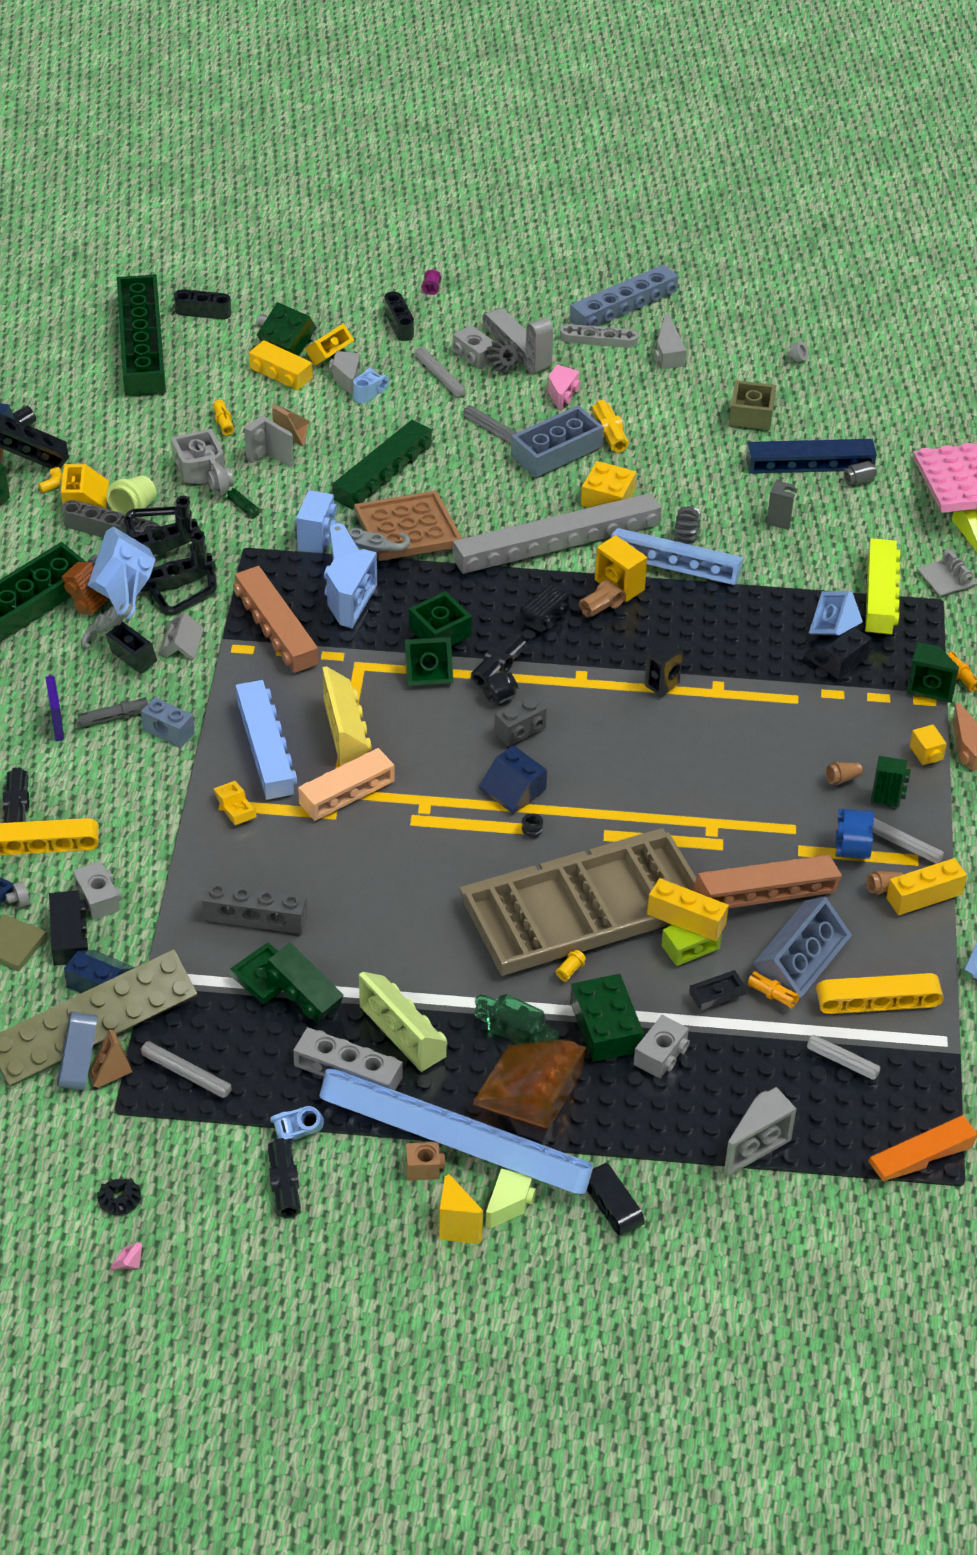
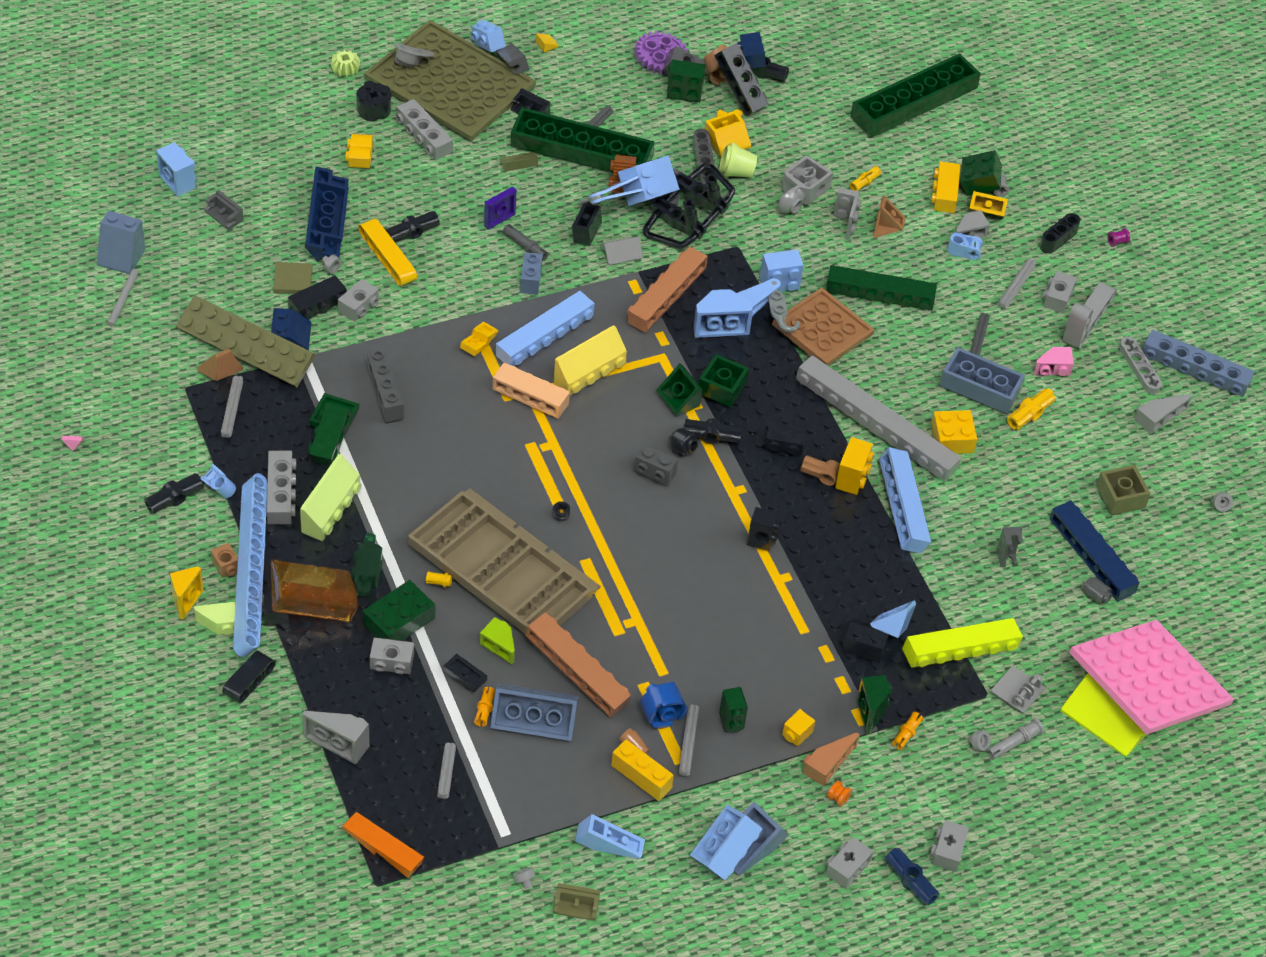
camera: 60 degrees right, 5 degrees up
(77, 1051) = (211, 343): sand blue beam -> none
(119, 1205) = (124, 422): black gear -> none
(202, 304) = (981, 116): black beam -> none
(243, 503) = (783, 227): dark green axle -> none
(503, 355) = (1051, 308): dark grey gear -> none
(514, 779) = (596, 483): dark blue slope -> none
(687, 524) = (945, 494): dark grey gear -> none
(687, 909) = (512, 620): yellow brick -> none
(841, 772) = (732, 679): medium nougat cone -> none
(879, 993) = (518, 773): yellow beam -> none

